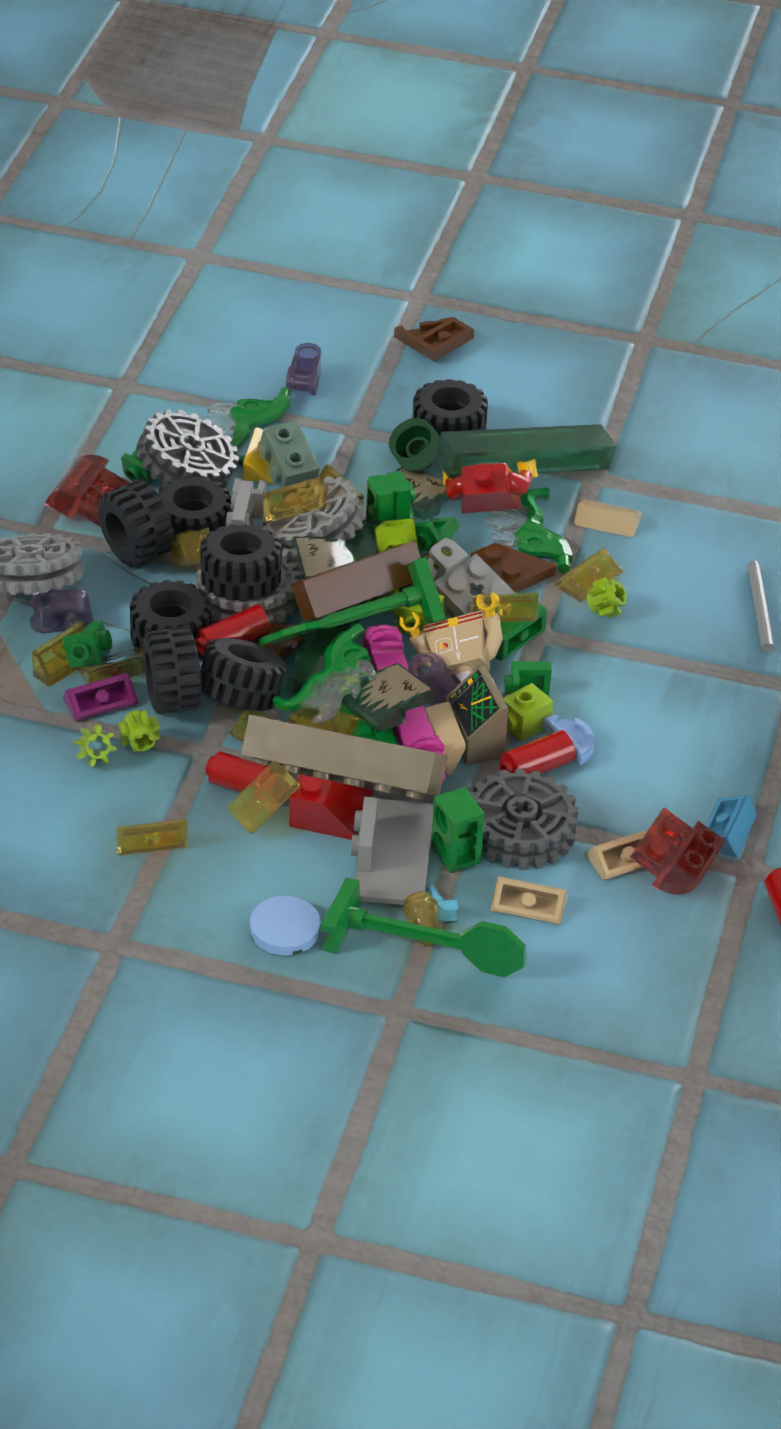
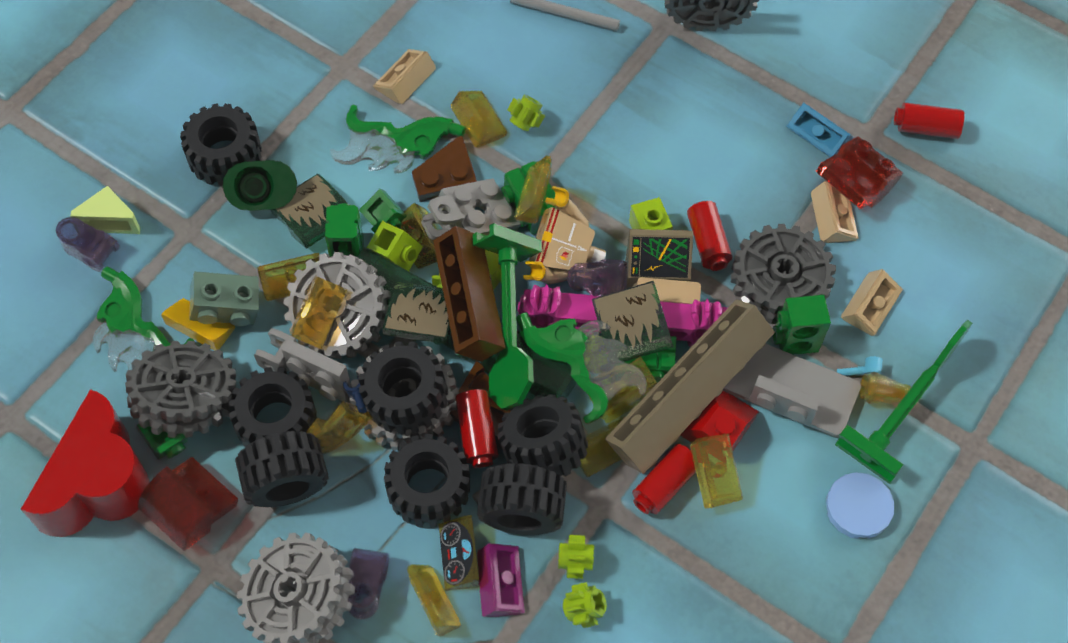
camera: 70 degrees left, 20 degrees up
(87, 420) = (88, 473): none -> red brick
(89, 646) = (446, 571): green bracket -> none
(151, 837) = (716, 588): clear yellow slope -> none
(341, 372) = (107, 213): none -> yellowish green slope
(436, 337) = (86, 118): reddish brown wing -> none
(490, 486) = (356, 150): red torso -> none
(528, 672) = (607, 218): green bracket -> none
(552, 448) = (312, 104): clear green brick -> none
(577, 730) = (685, 196): light blue plate -> none

